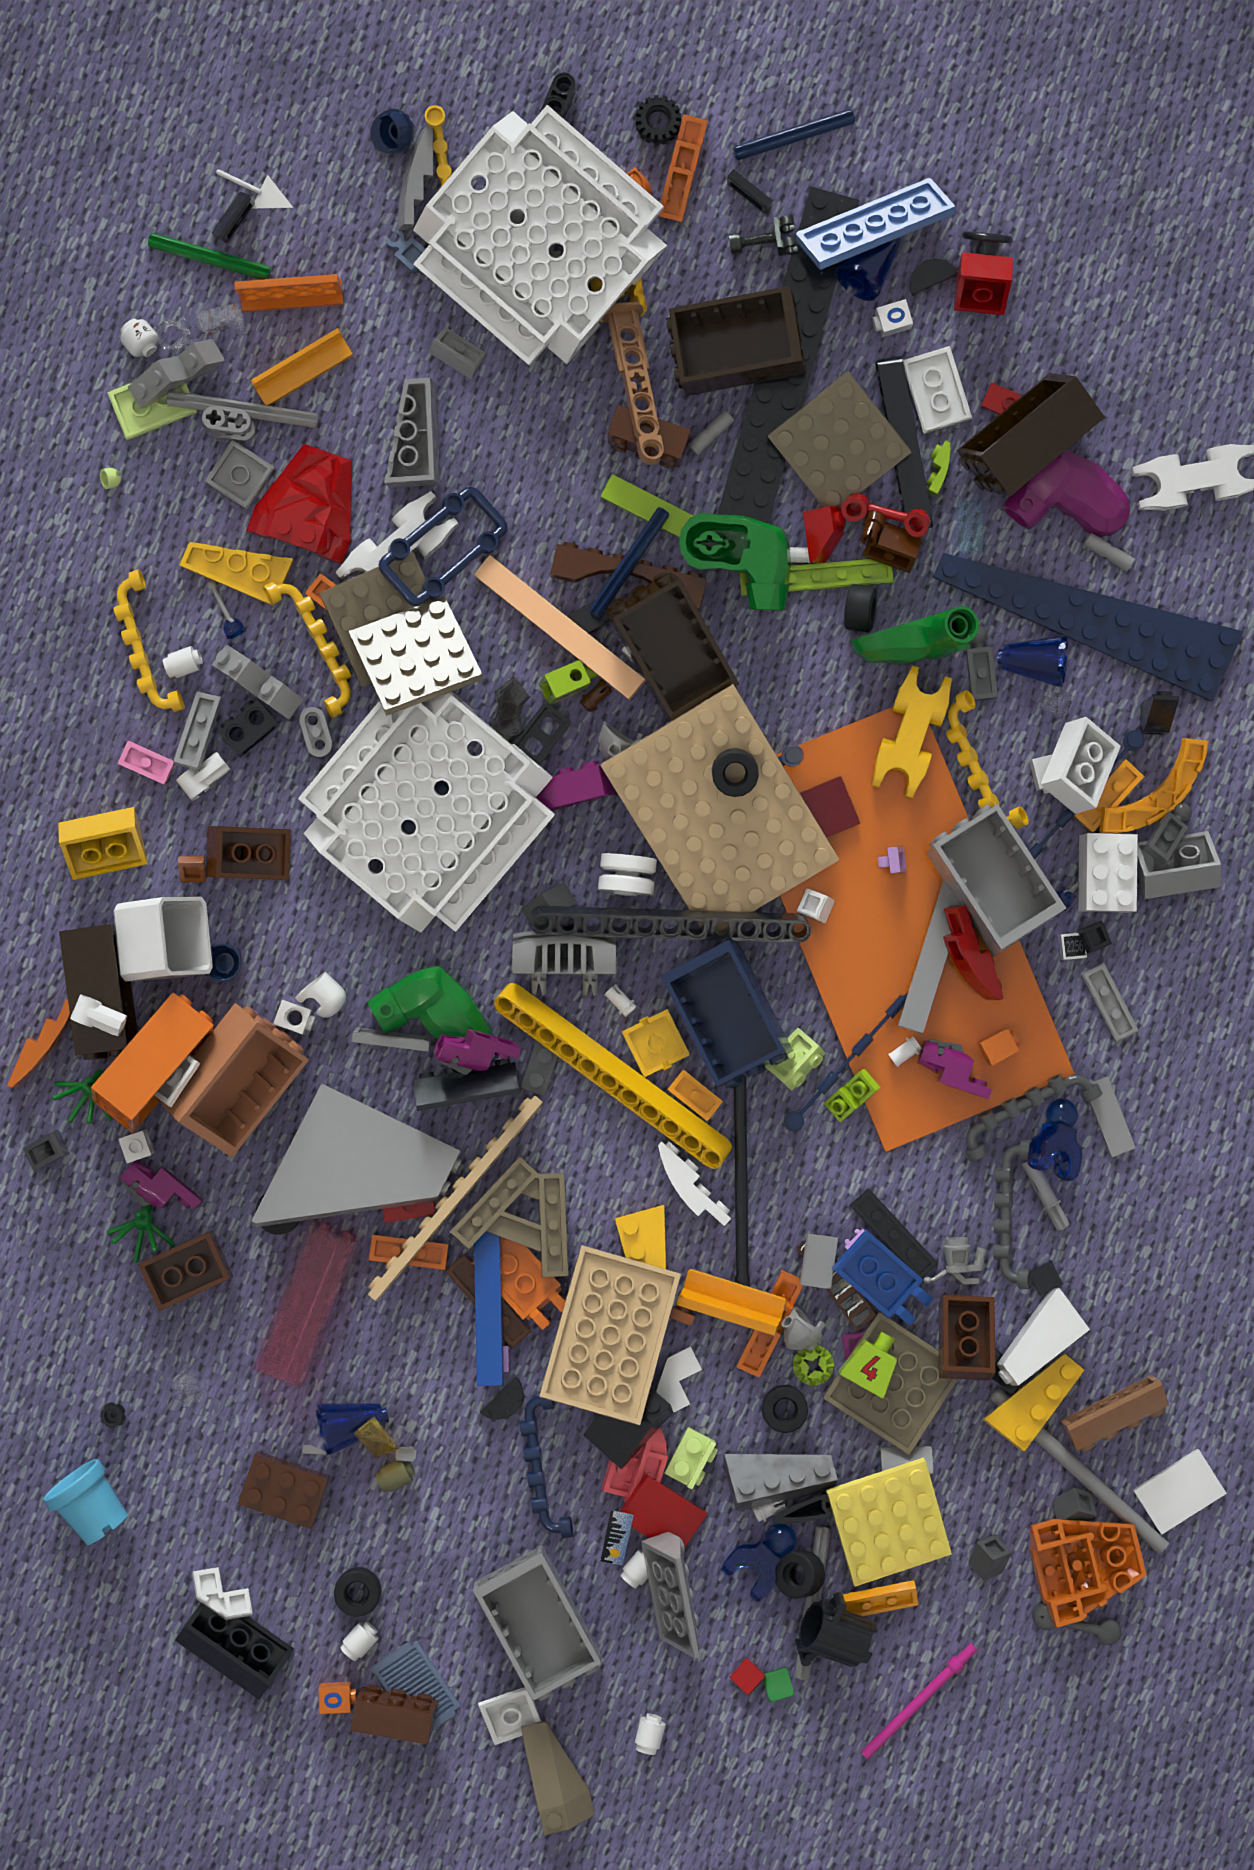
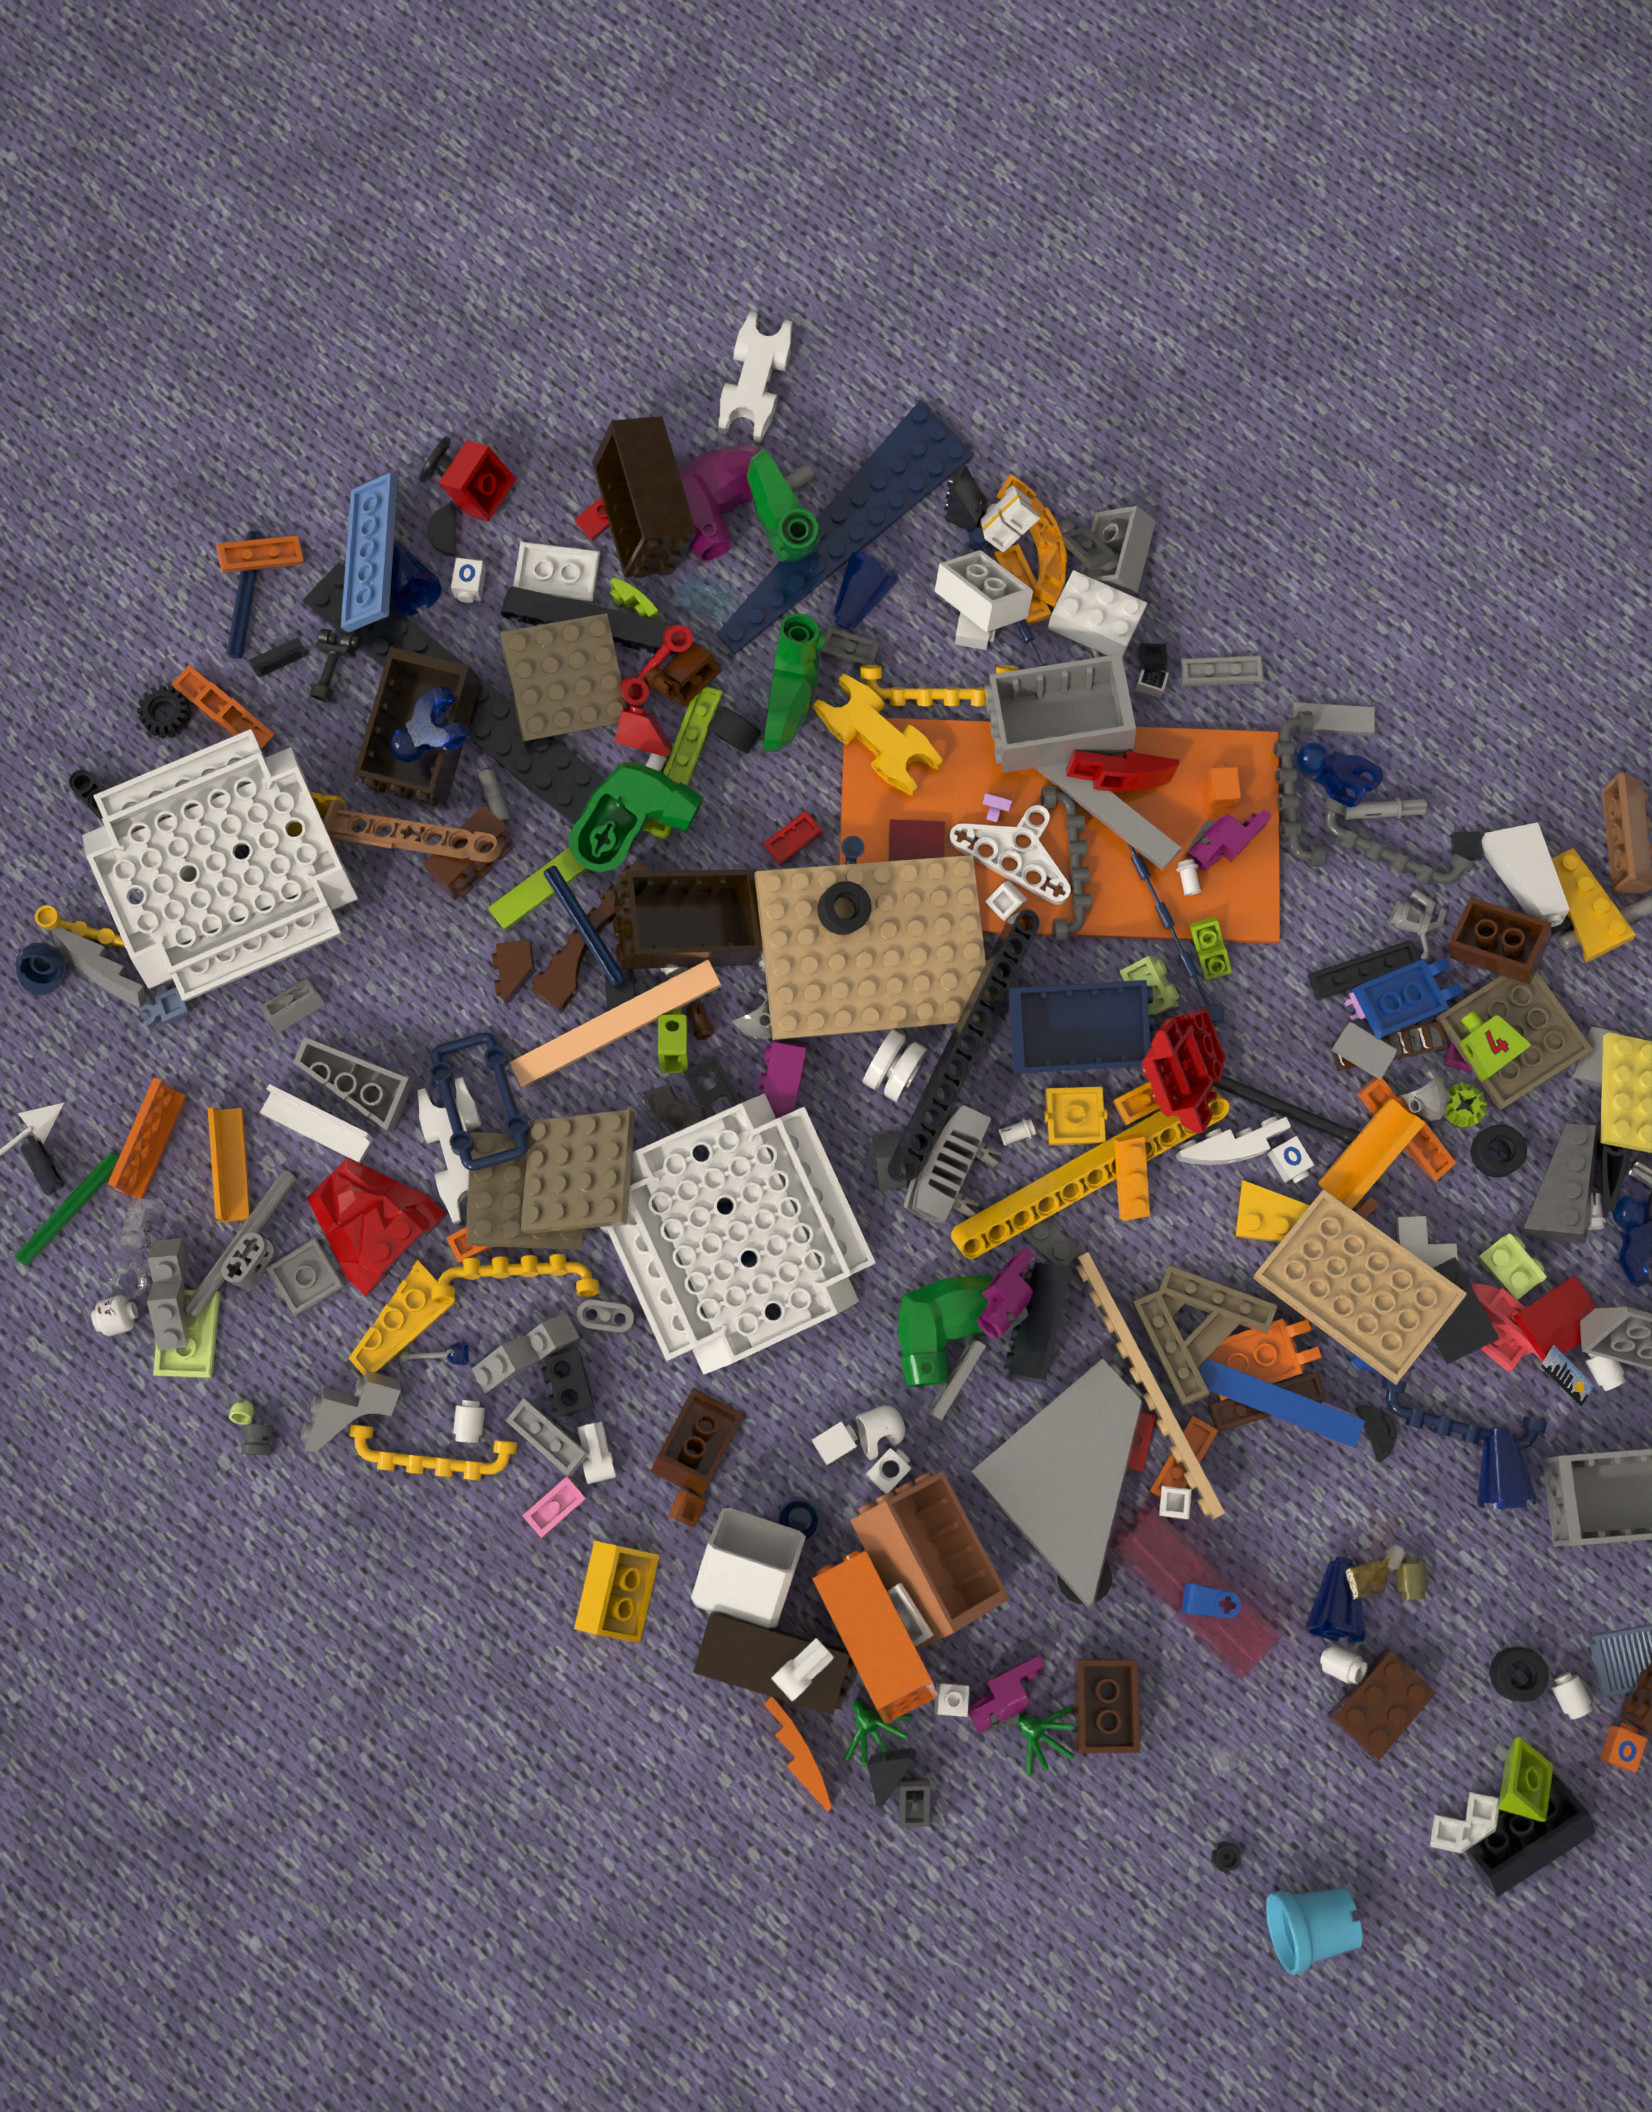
camera: 65 degrees left, 10 degrees down
(58, 1118) = (887, 1771): none -> black slope
(93, 501) = (257, 1439): none -> dark grey wheel
(144, 553) = (336, 1409): none -> light grey arch
(273, 1629) = (1525, 1781): none -> lime slope
(297, 964) = (835, 1442): none -> white brick
(300, 1312) = (1204, 1601): none -> blue piece
(301, 1447) = (1343, 1665): none -> white brick
(366, 422) = (316, 1124): none -> white panel
(369, 1258) = (1175, 1502): none -> white slope
(511, 1515) = (1503, 1472): none -> clear blue cone
(570, 521) = (515, 967): none -> reddish brown slope
(622, 1111) = (1131, 1177): none -> light orange plate
(697, 1239) = (1291, 1160): none -> white brick
(730, 1114) = (1183, 1067): none -> red wedge
(731, 353) = (428, 728): none -> clear blue piece
(789, 701) = (792, 838): none -> red plate
(832, 130) = (259, 554): none -> orange plate
(863, 882) = (1004, 846): none -> white beam
(886, 945) = (1078, 874): none -> dark grey bar
(1071, 558) = (790, 528): none -> green piece
(1159, 757) = (1008, 519): none -> white hips

